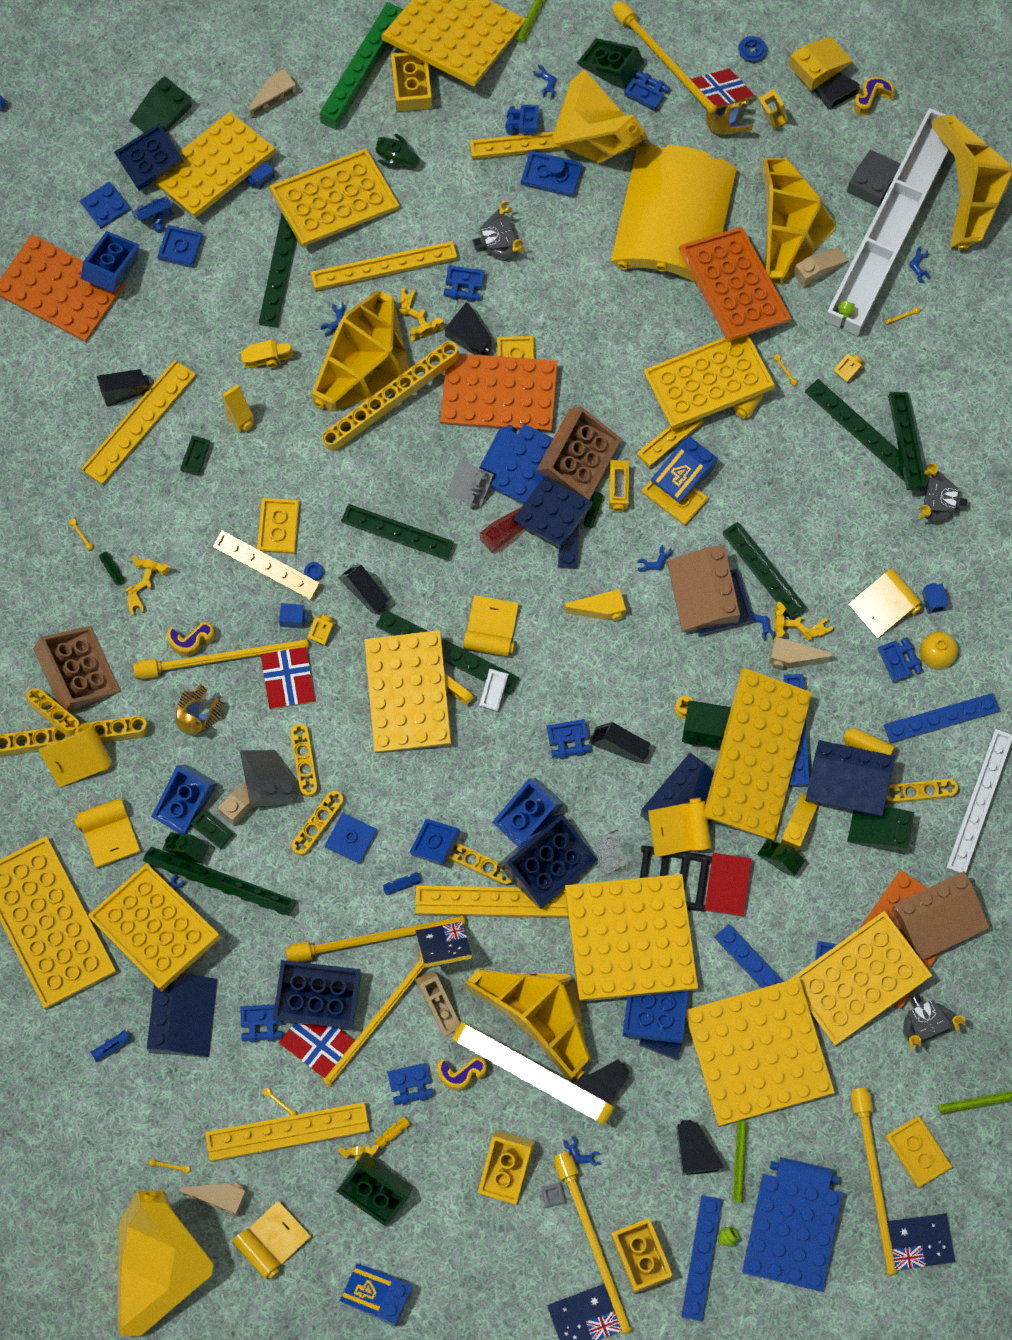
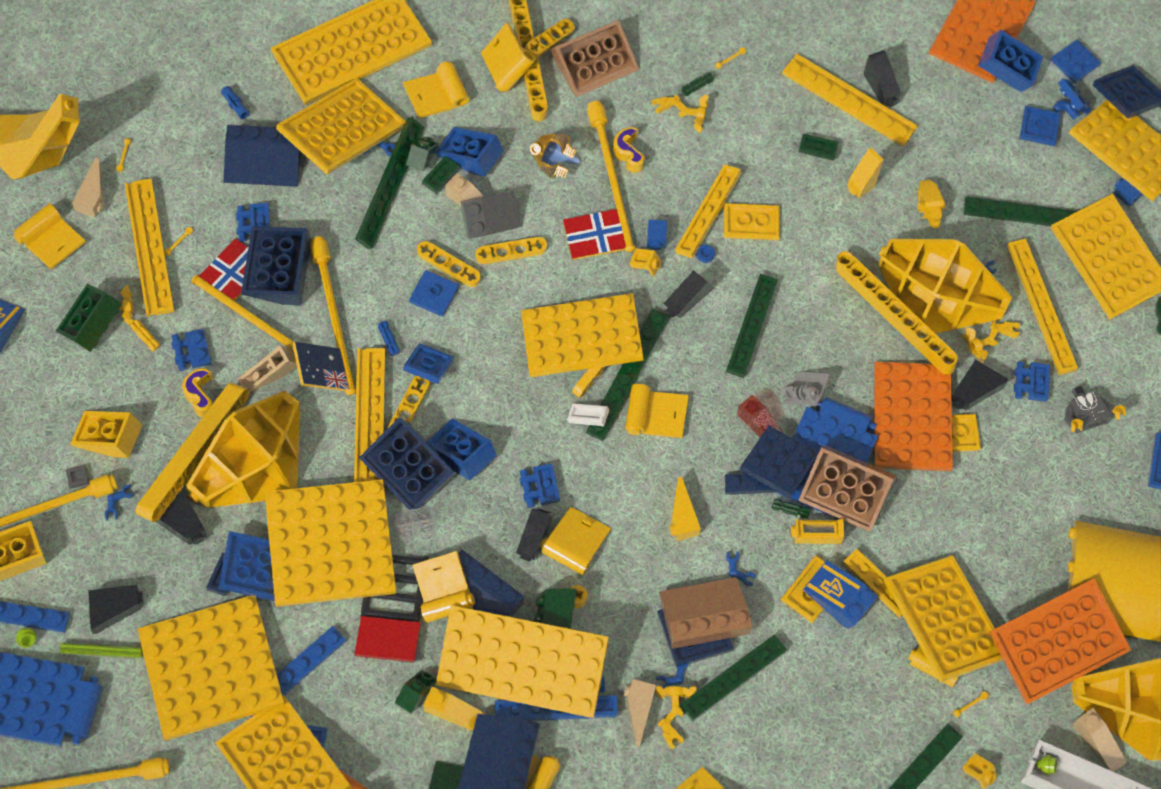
camera: 85 degrees right, 5 degrees down
(628, 705) = (575, 540): none -> yellow door

